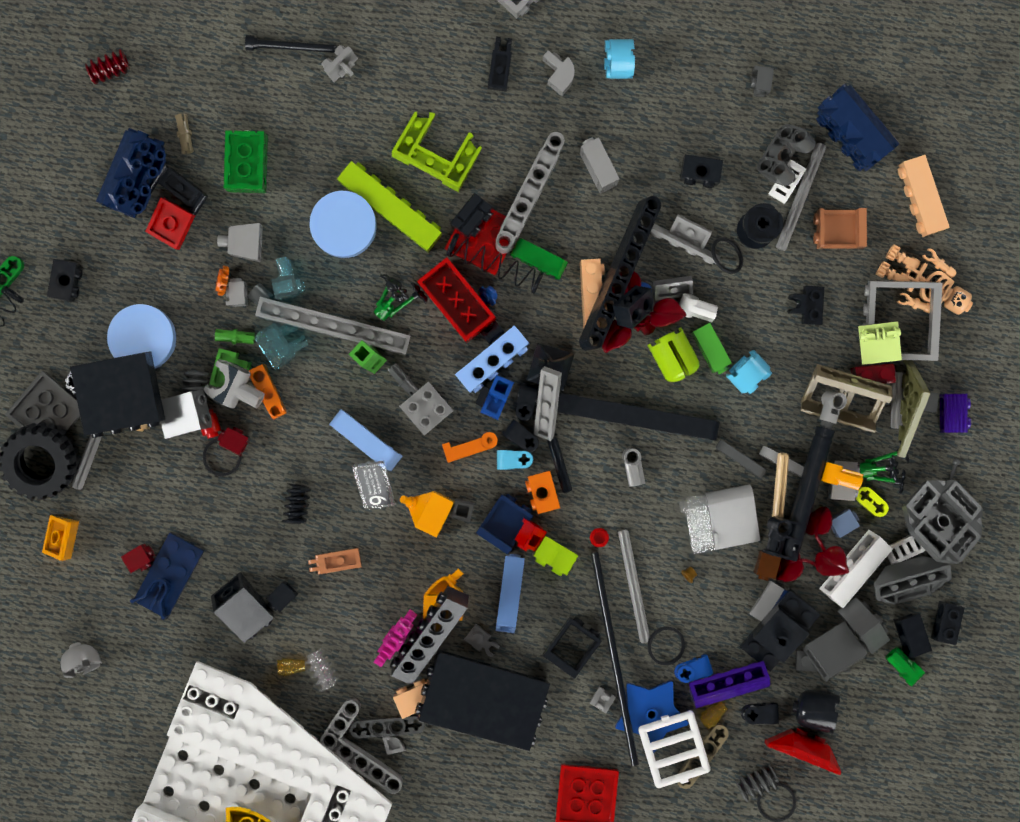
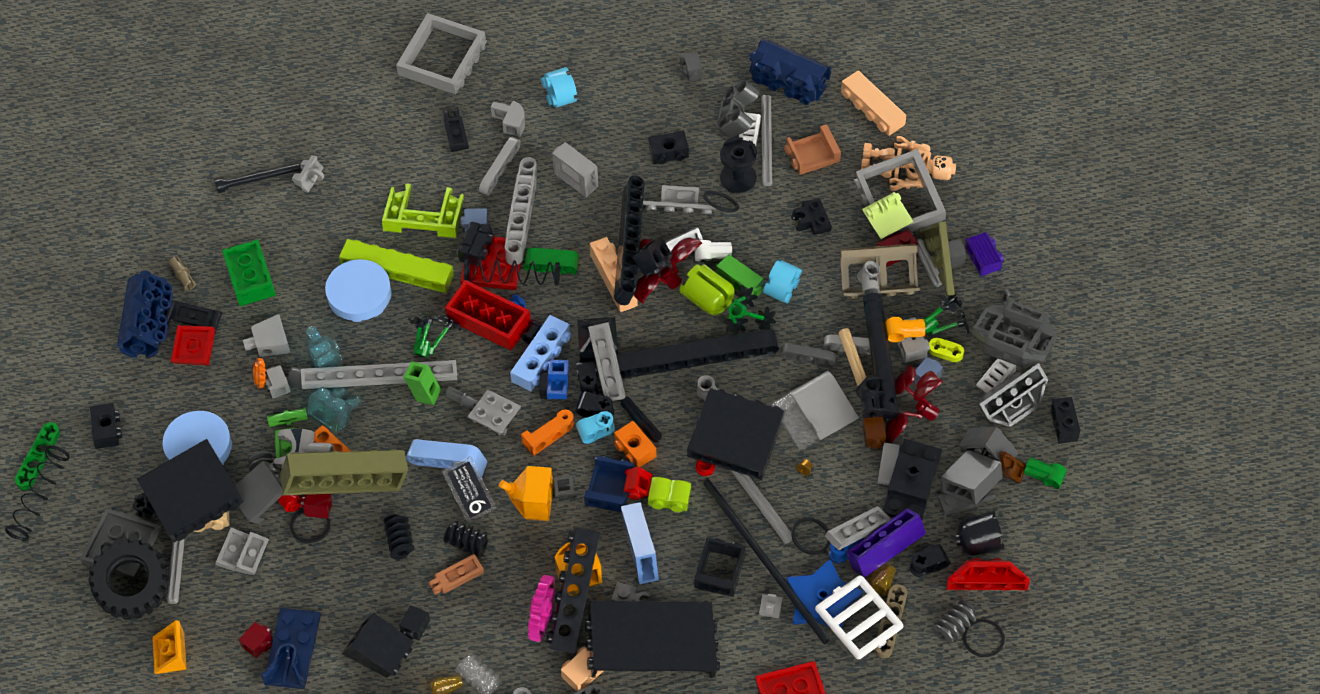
camera: 25 degrees left, 30 degrees down
(107, 67) = (93, 242): dark red piece -> none
(152, 461) = (242, 551): none -> light grey slope
(259, 432) = (343, 472): none -> olive brick
(356, 529) = (466, 538): none -> black piece
(482, 184) = (474, 215): none -> sand blue brick
(529, 126) = (499, 165): none -> light grey beam
(639, 523) = (735, 433): none -> black brick
(692, 397) = (738, 310): none -> black plant
(709, 665) = (857, 528): none -> light grey plate
(861, 563) = (957, 404): white brick -> none
(877, 654) = (1012, 467): none -> reddish brown tile
(912, 635) = (1038, 442): black hinge -> none

